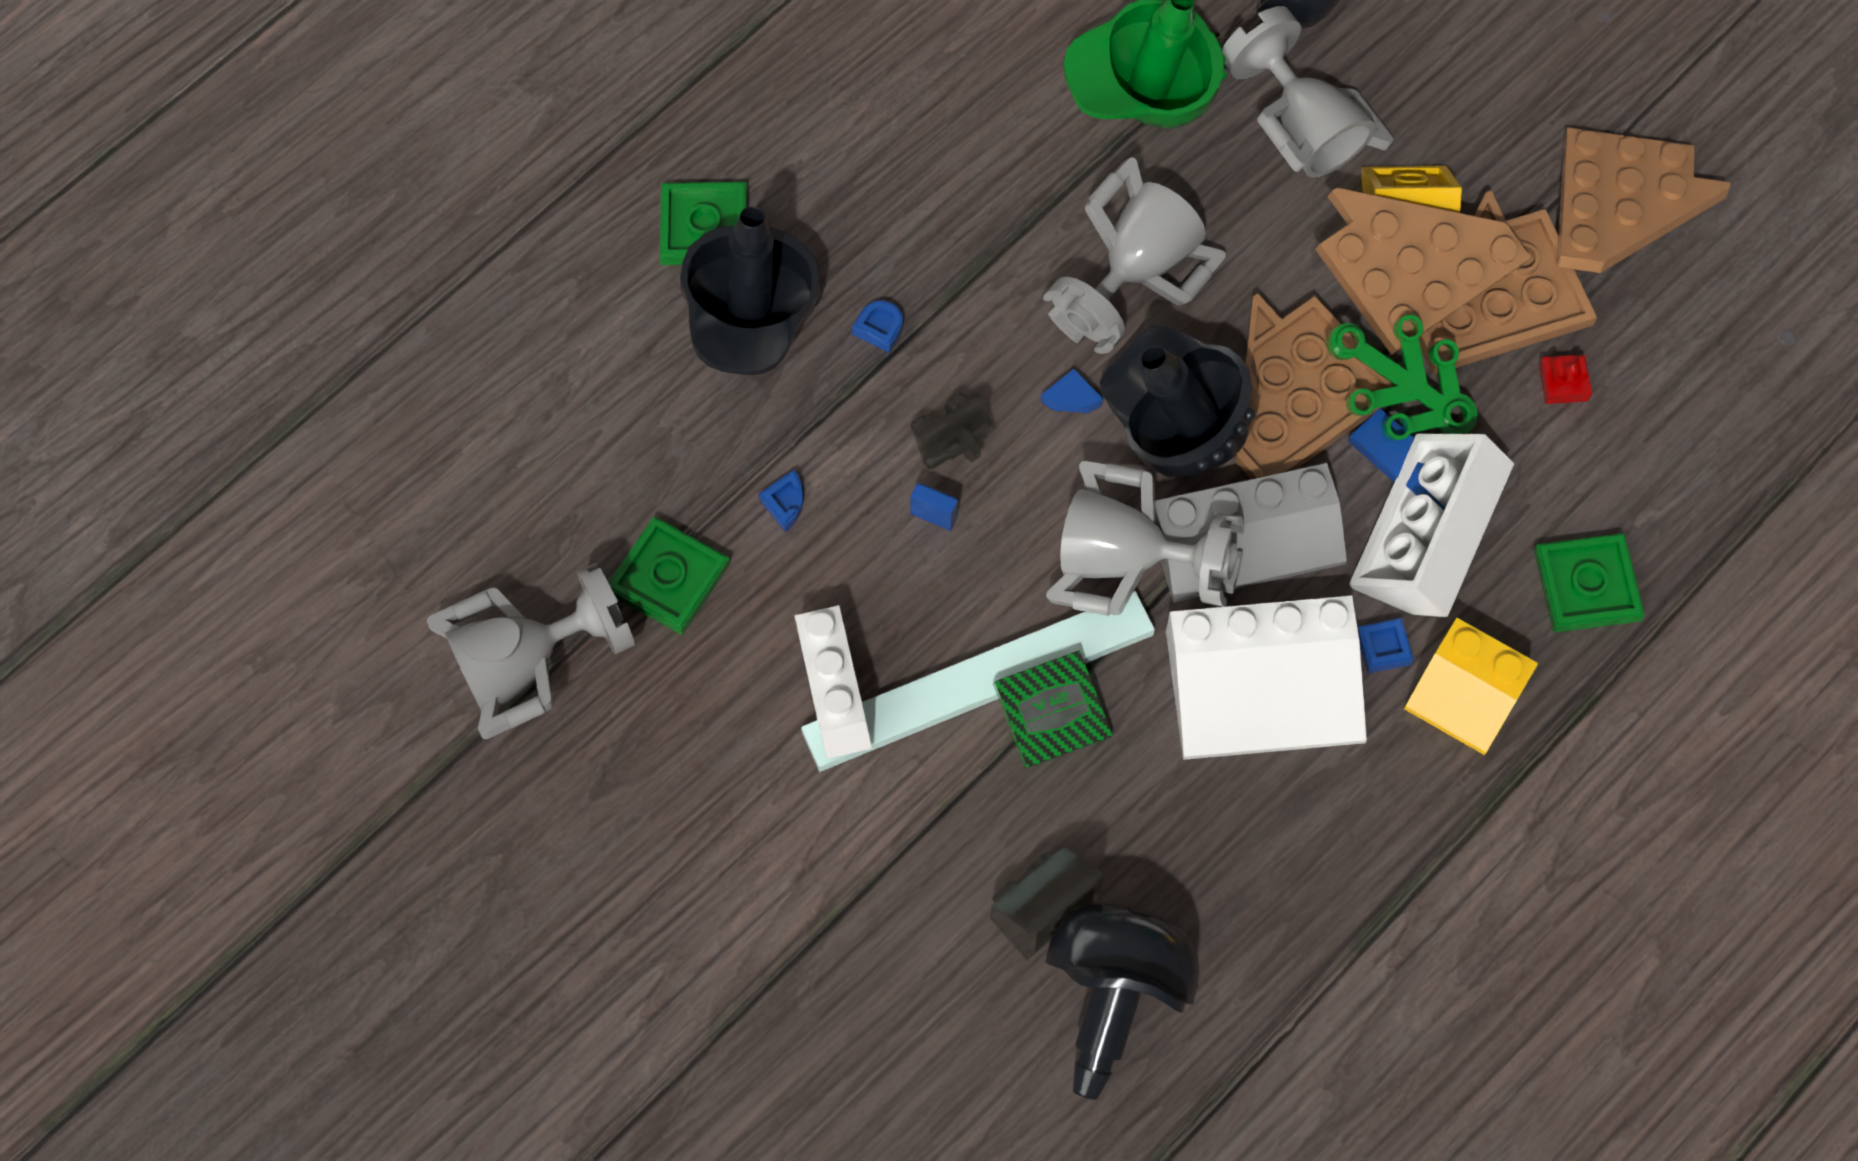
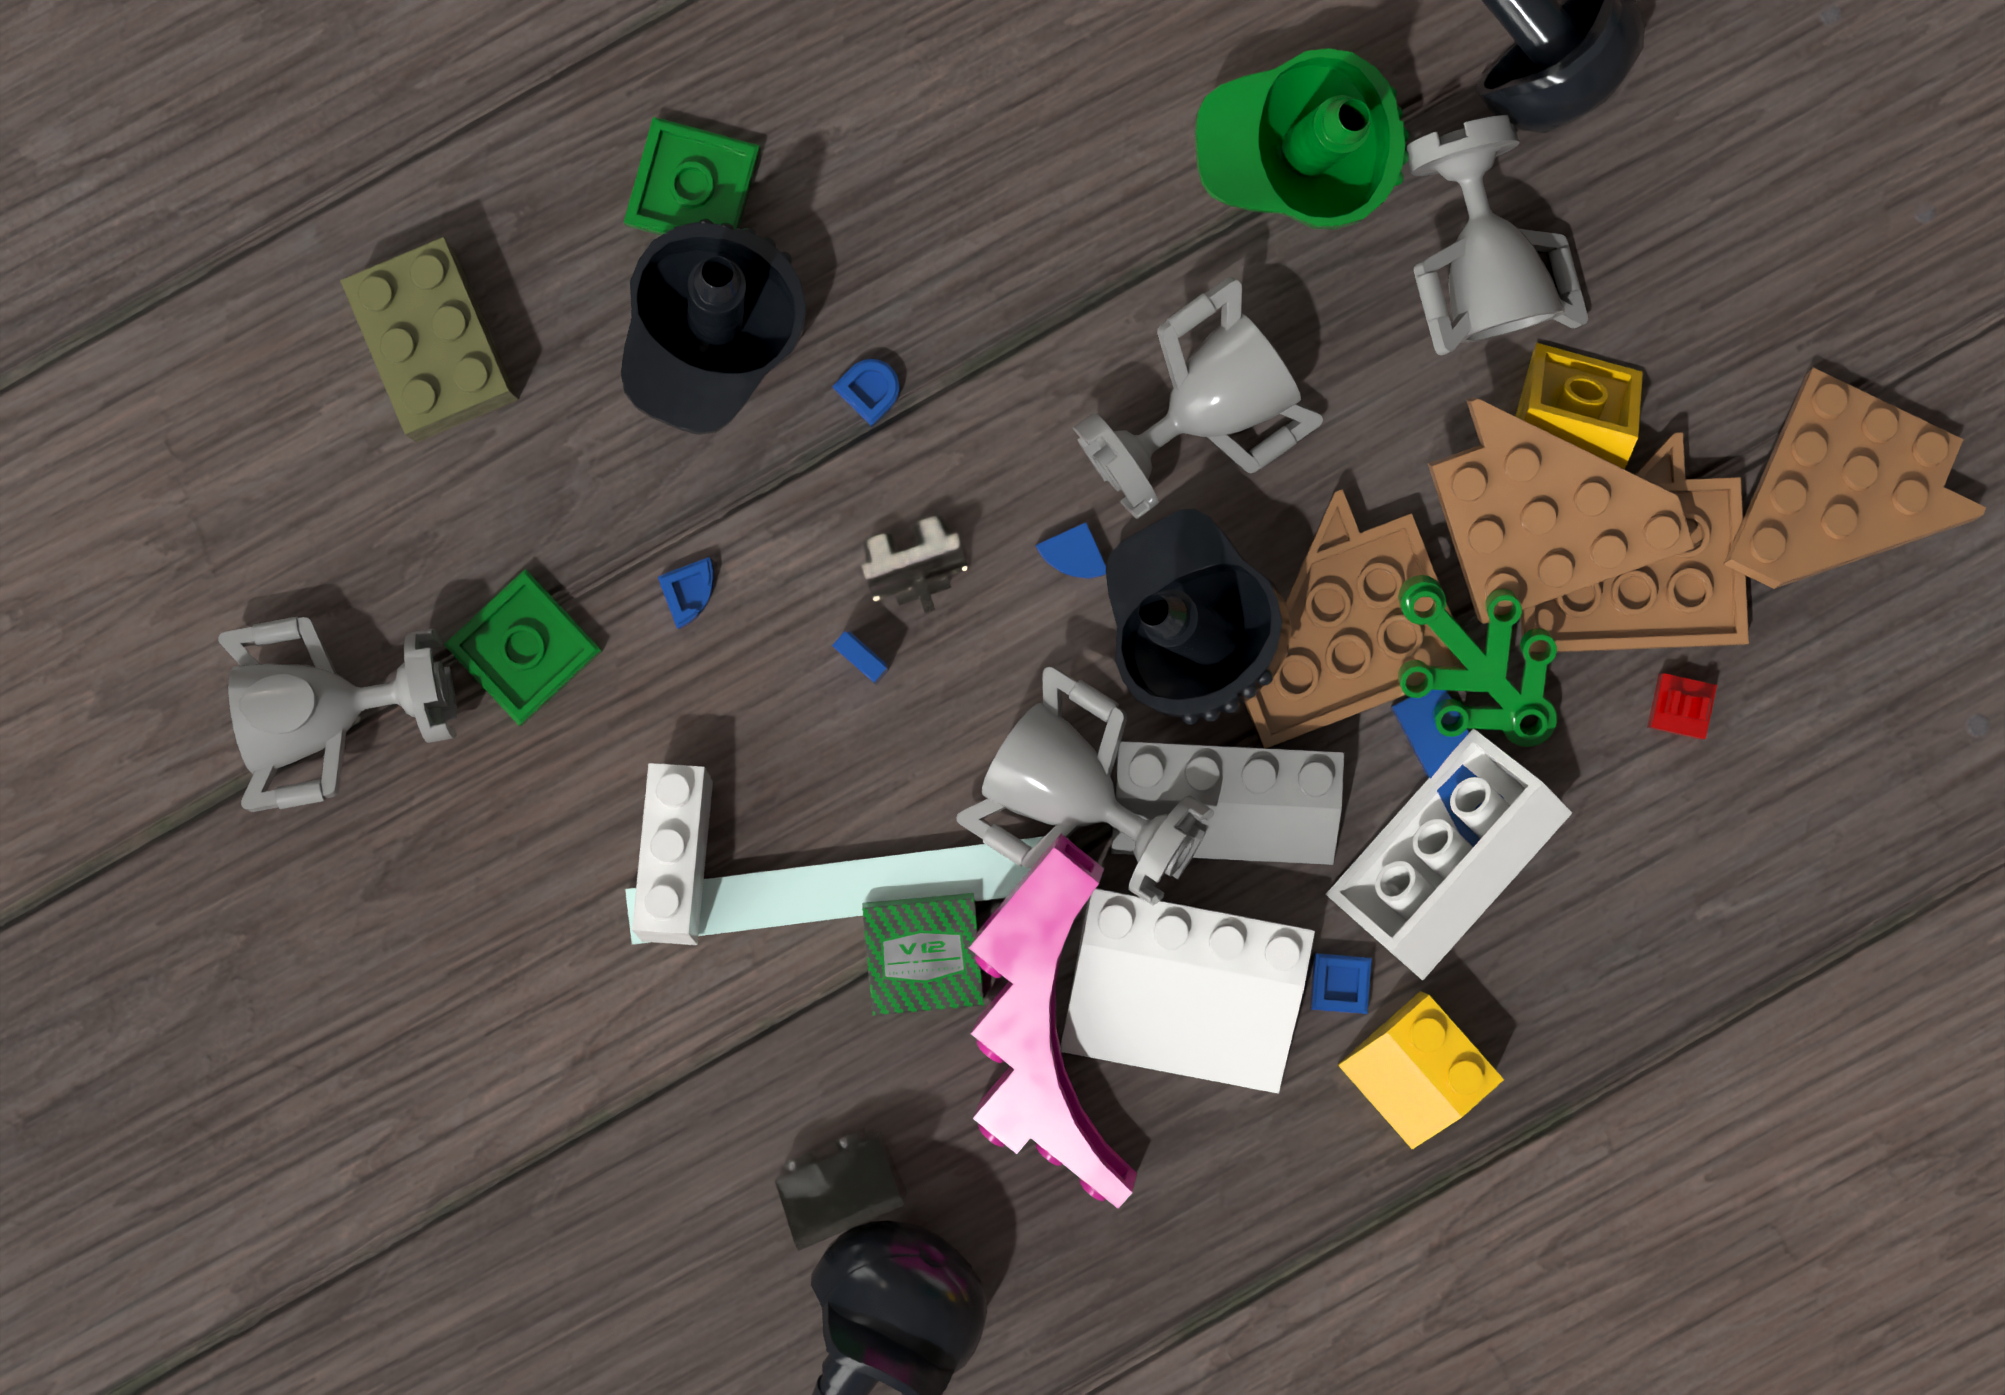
camera: 15 degrees right, 20 degrees up
(536, 371) = (429, 340): none -> olive brick
(1176, 786) = (1019, 1025): none -> arch
(1588, 583) = (1611, 976): green tile -> none

